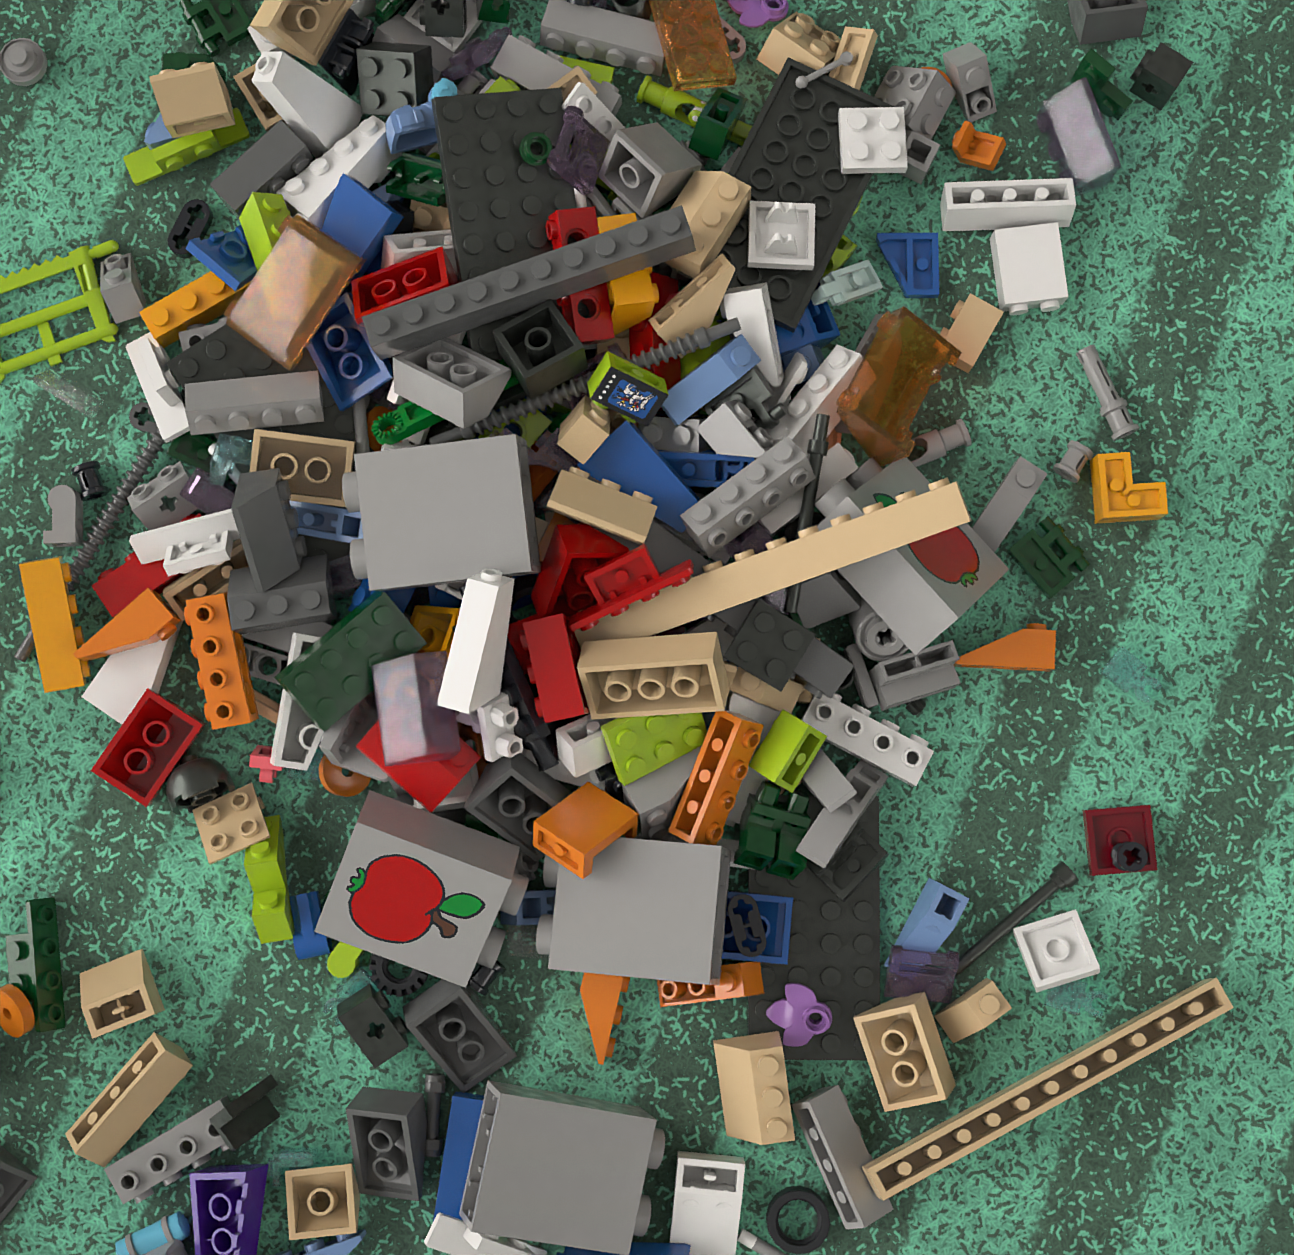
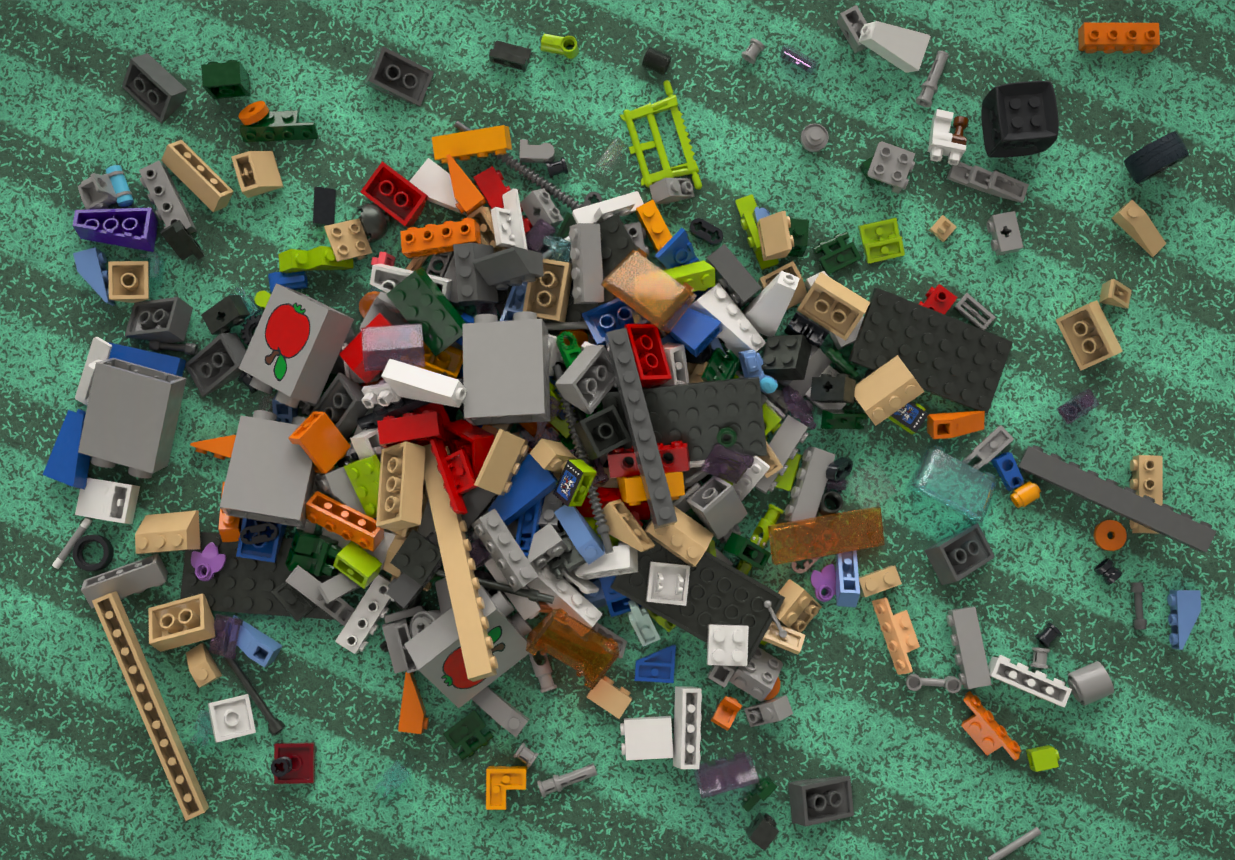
camera: 90 degrees right, 0 degrees up
(175, 873) = (324, 206): none -> black slope

